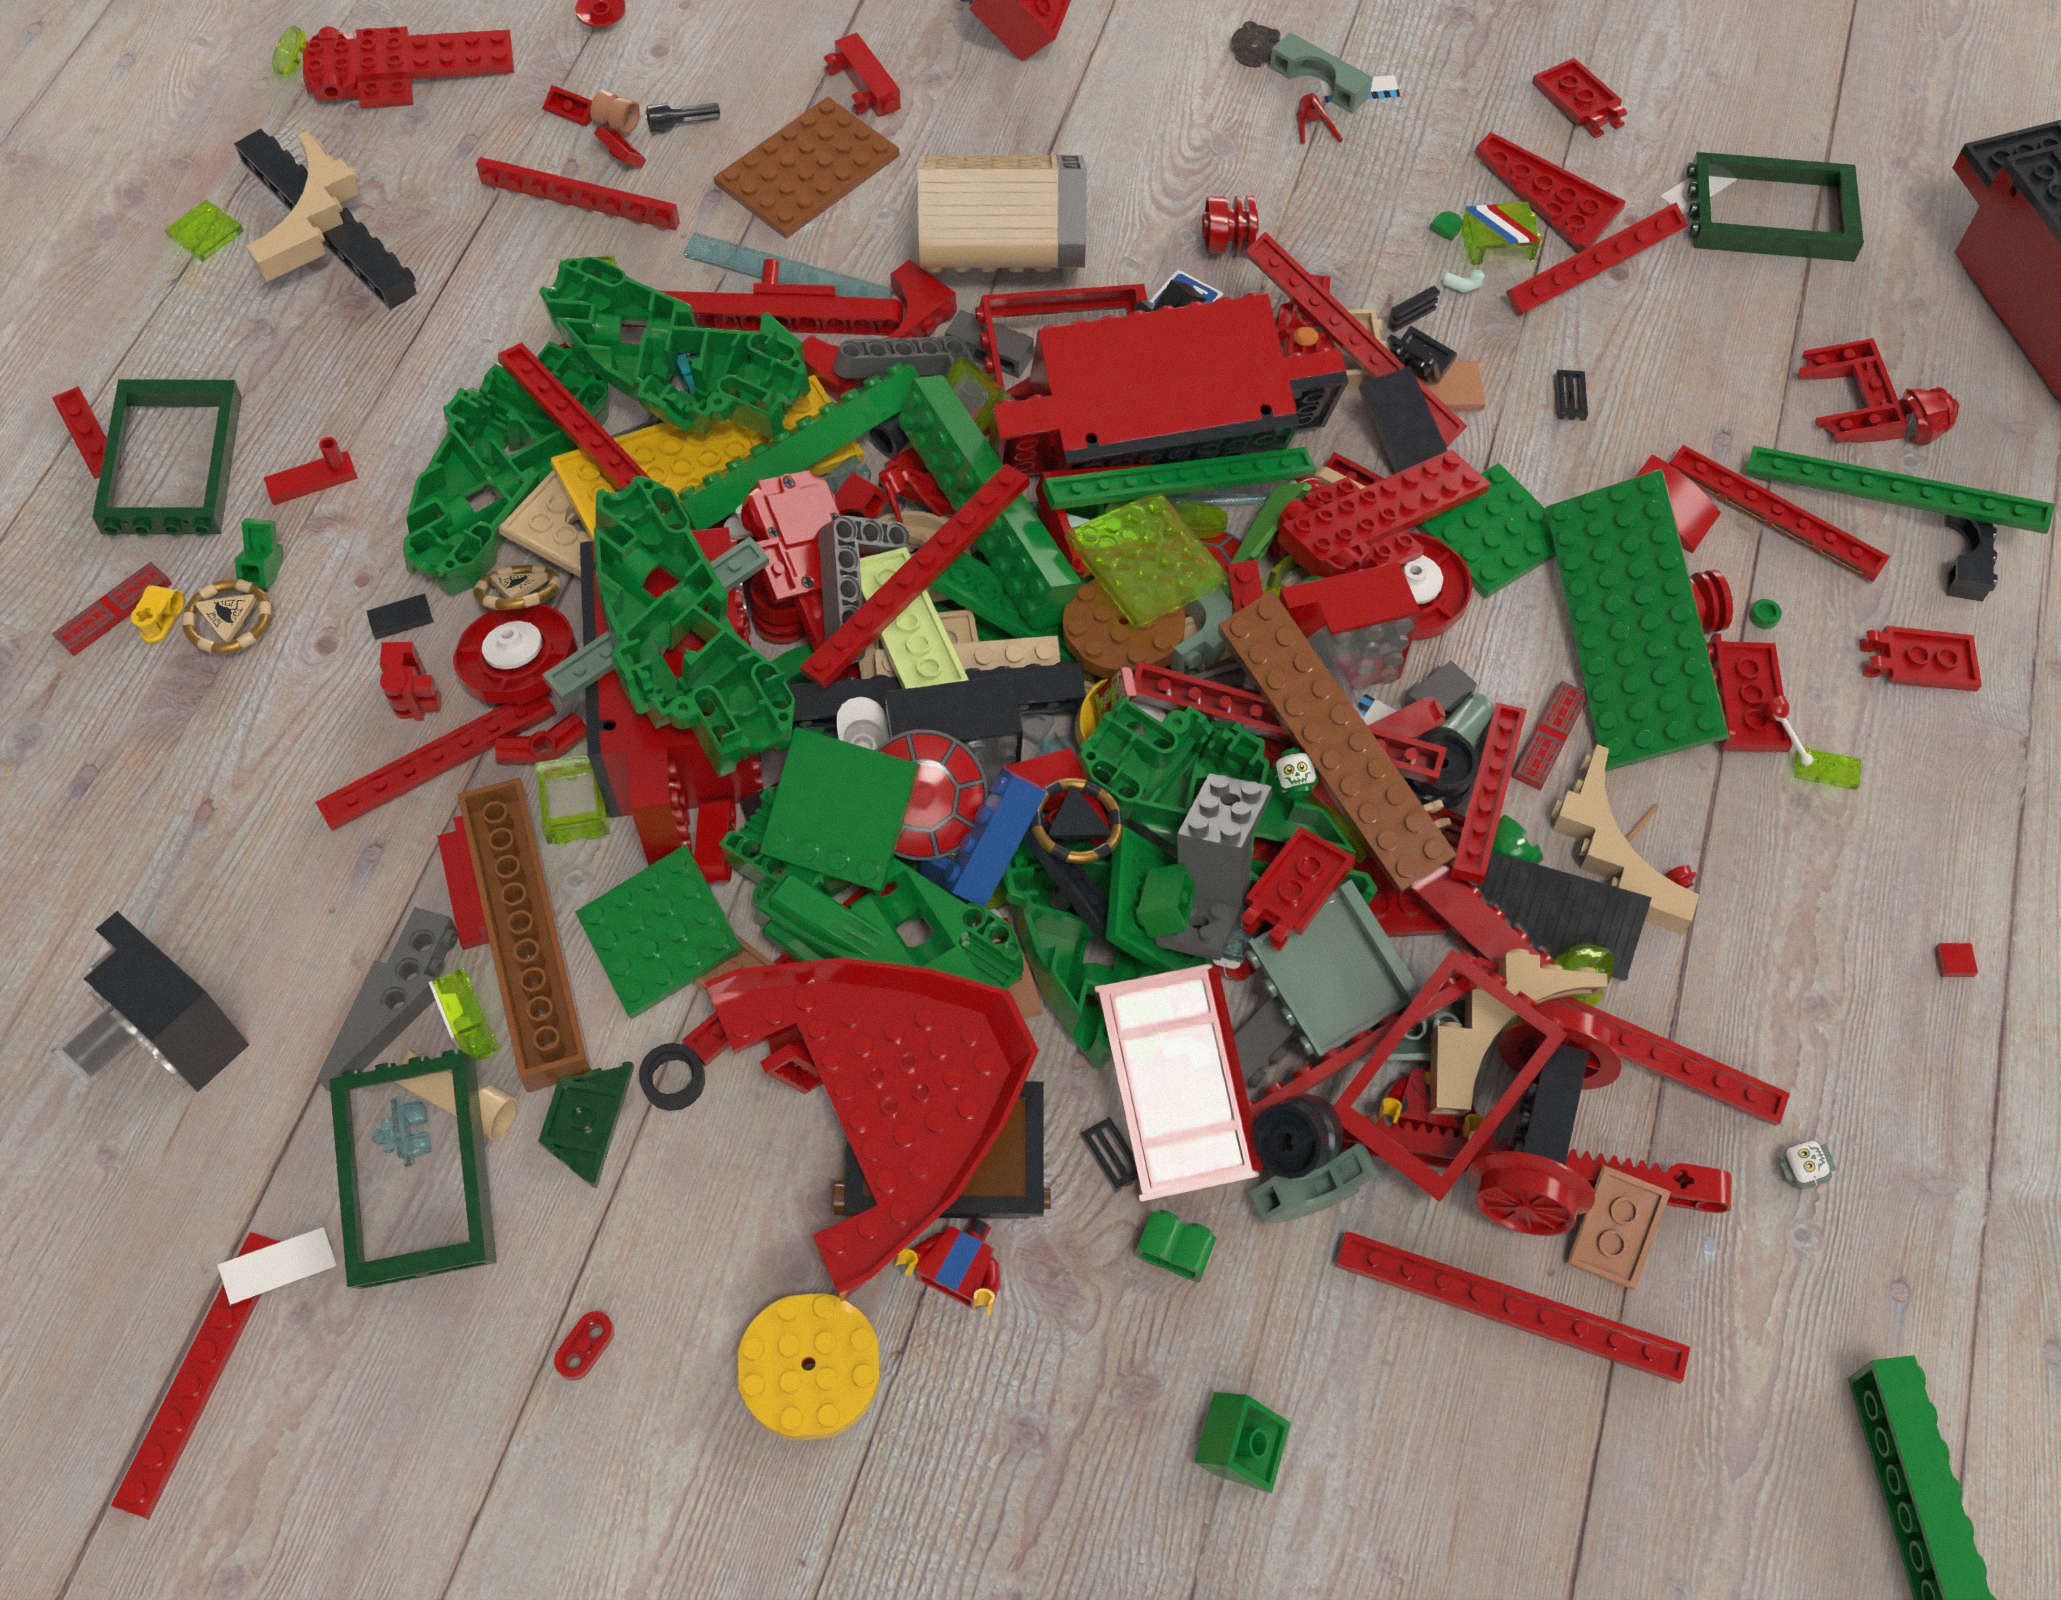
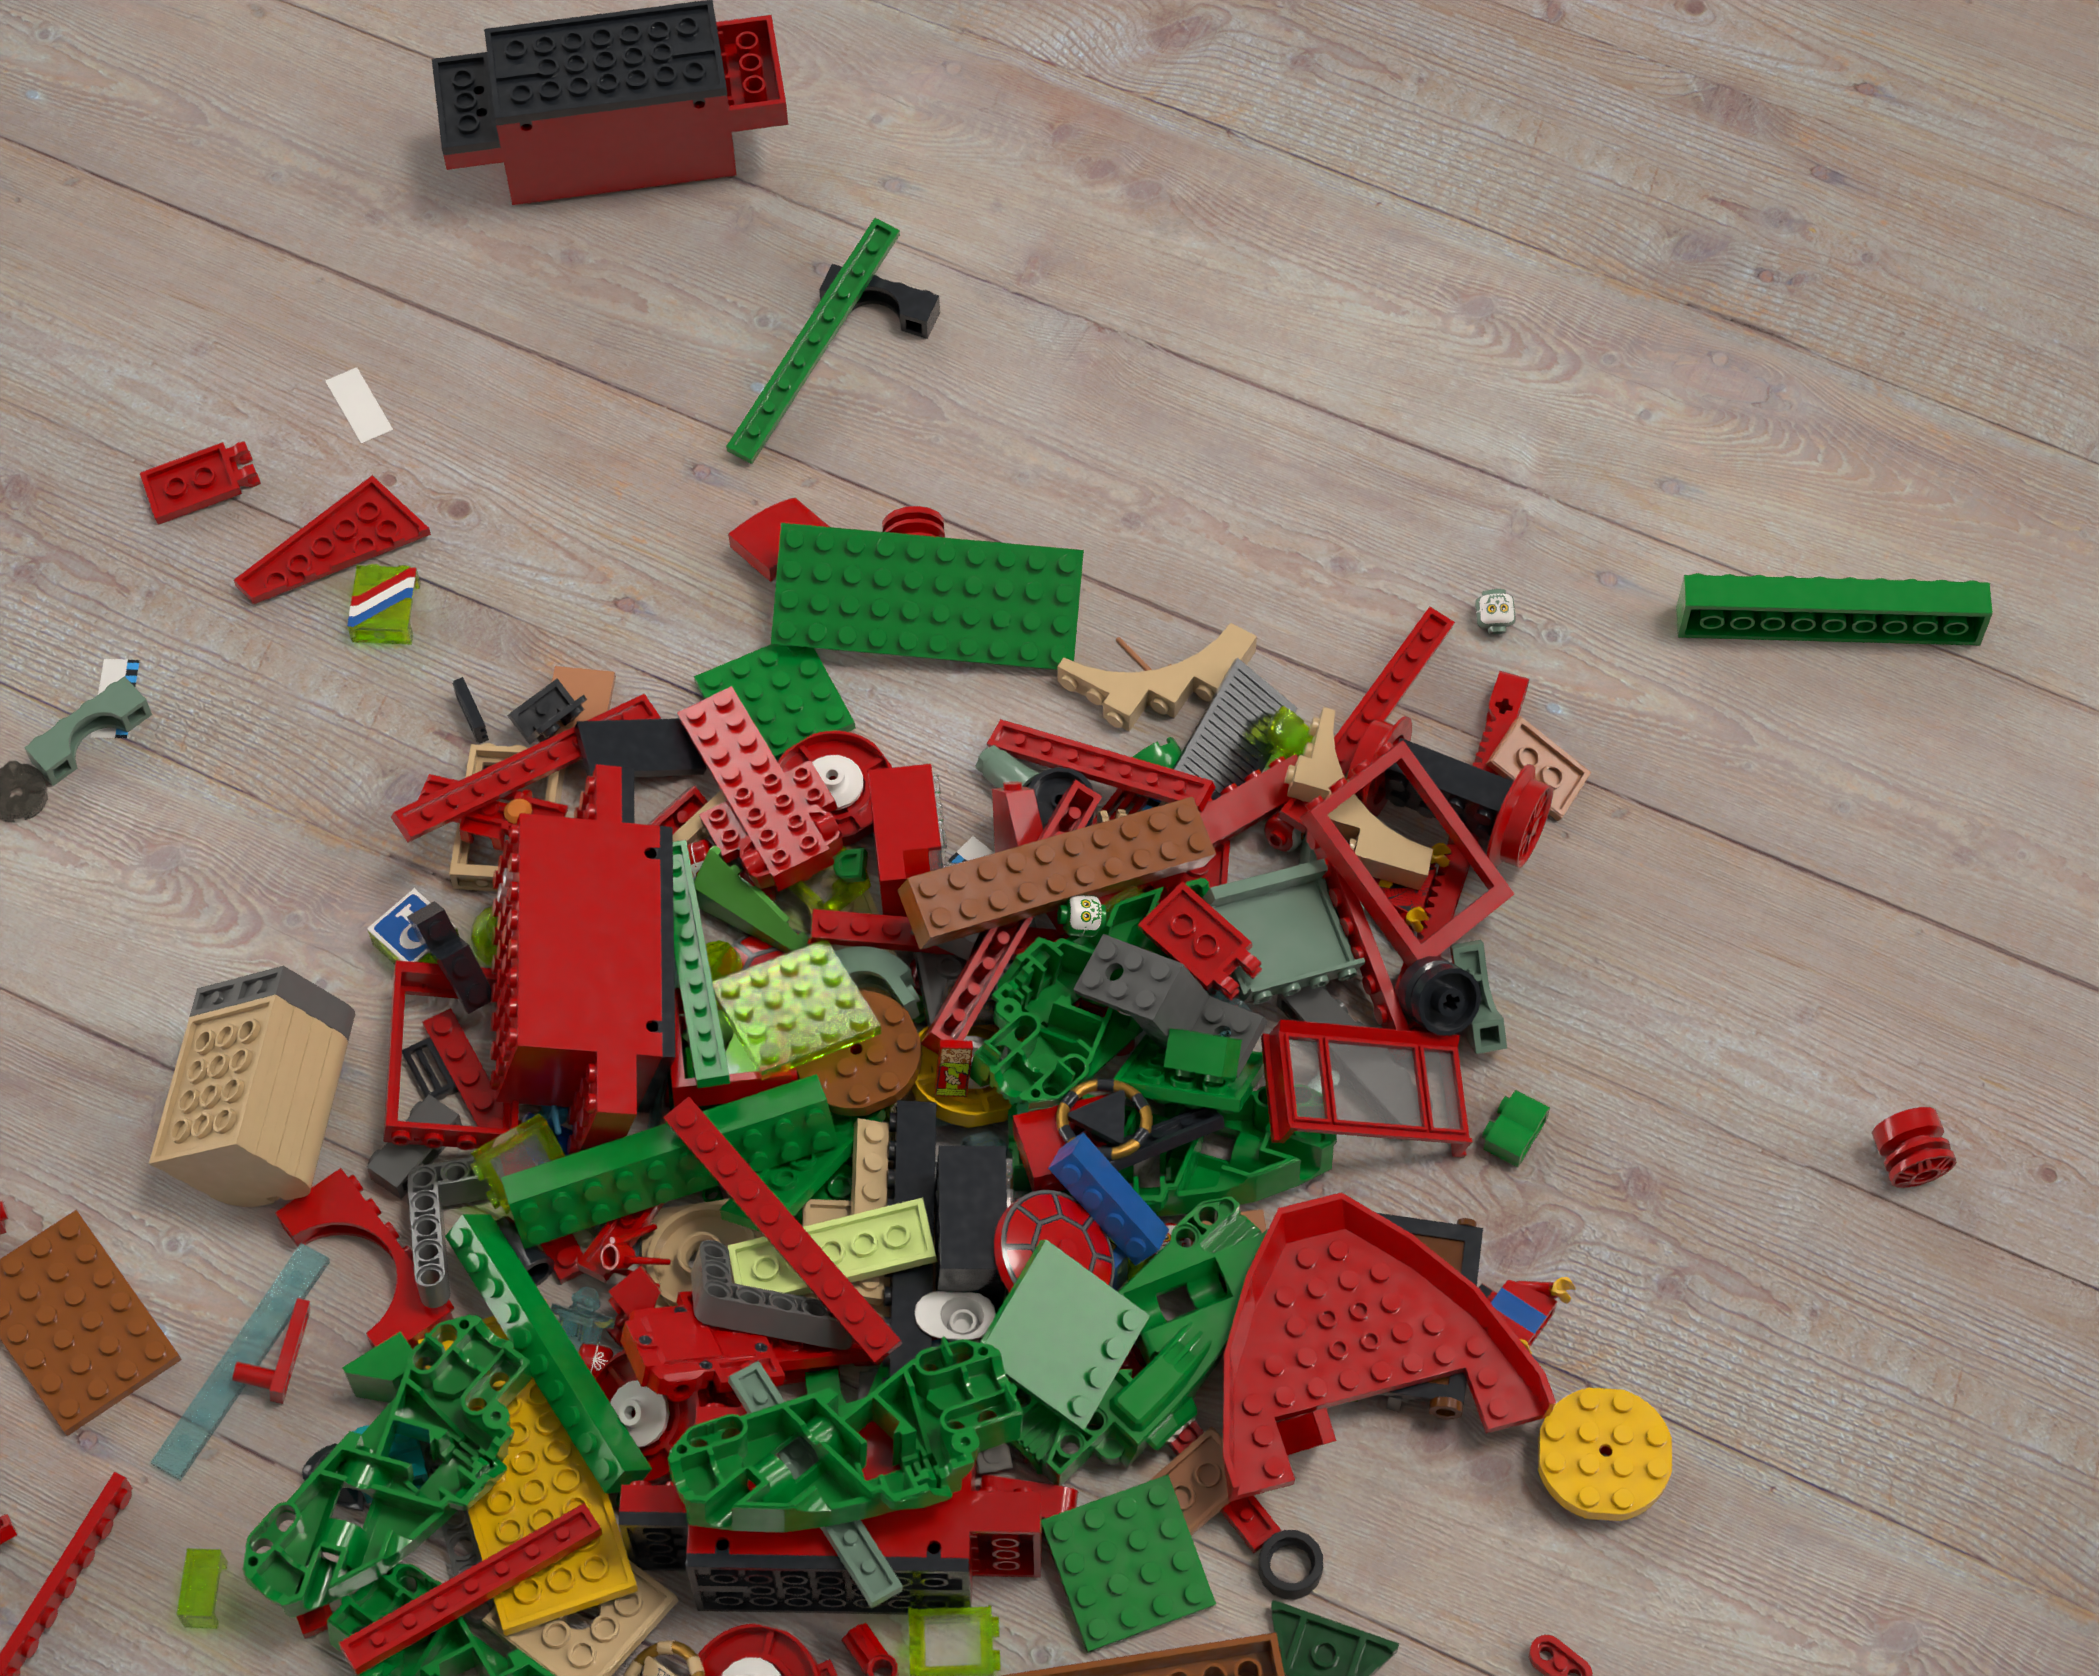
camera: 80 degrees left, 0 degrees up
(794, 312) = (305, 1383): red beam -> none
(1126, 1178) = (1393, 1181): black tile -> none
(1229, 224) = (312, 864): red wheel -> none
(1242, 1441) = (1697, 1105): green slope -> none
(1312, 110) = (143, 751): red plant -> none
(1445, 684) = (968, 790): dark grey brick -> none
(1447, 225) = (353, 653): green tile -> none
(1466, 284) = (443, 654): light aqua arm -> none
(1514, 1307) = (1595, 872): red plate -> none
(1550, 736) = (1025, 703): tile -> none
(1562, 411) = (613, 595): black tile -> none
(1596, 259) = (444, 522): red plate -> none
(1682, 876) = (1202, 636): red plate -> none
(1746, 680) = (1016, 521): red bracket -> none
(1765, 614) = (922, 491): green tile -> none
(1771, 240) = (400, 409): dark green window -> none
(1778, 710) = (1044, 507): hinge -> none
(1780, 514) = (807, 450): red plate -> none
(1829, 769) = (1103, 488): clear neon green plate -> none
(1859, 359) = (712, 325): red wedge -> none
(1923, 658) = (999, 377): red tile -> none
(1933, 411) = (723, 281): red helmet -> none
(1956, 960) = (1313, 446): red tile -> none

